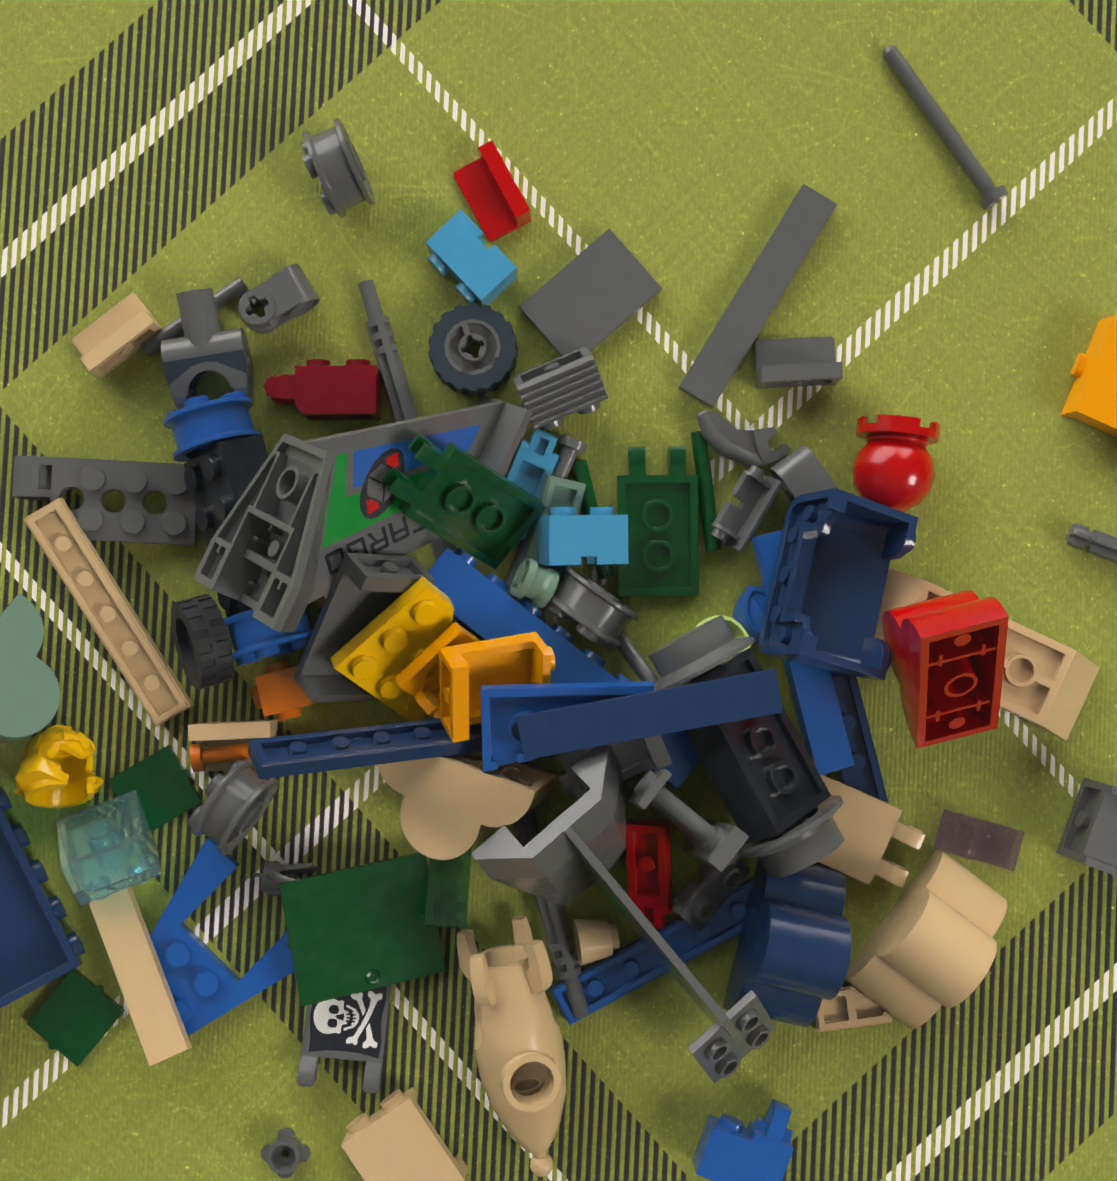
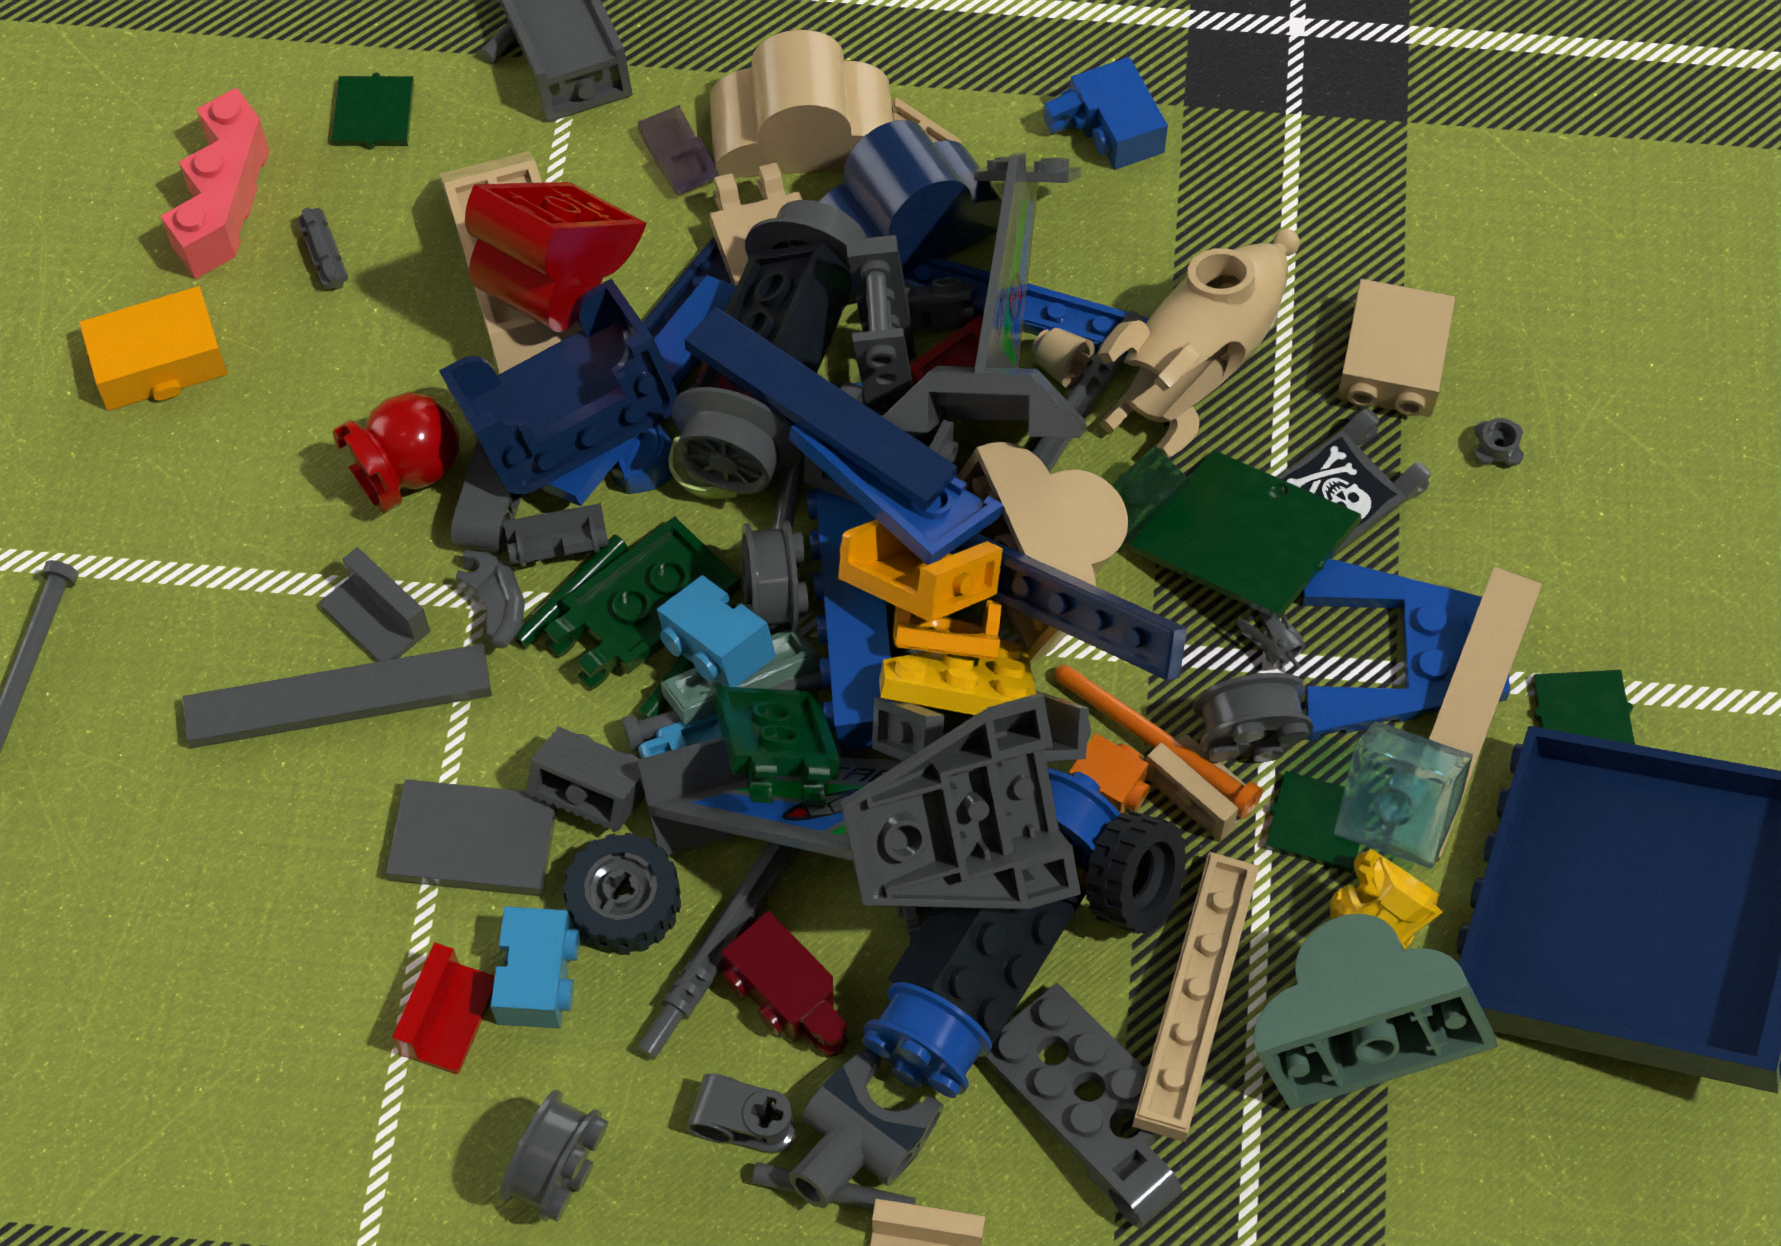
camera: 135 degrees left, 25 degrees down
(534, 583) = (795, 630): sand green wheel -> none

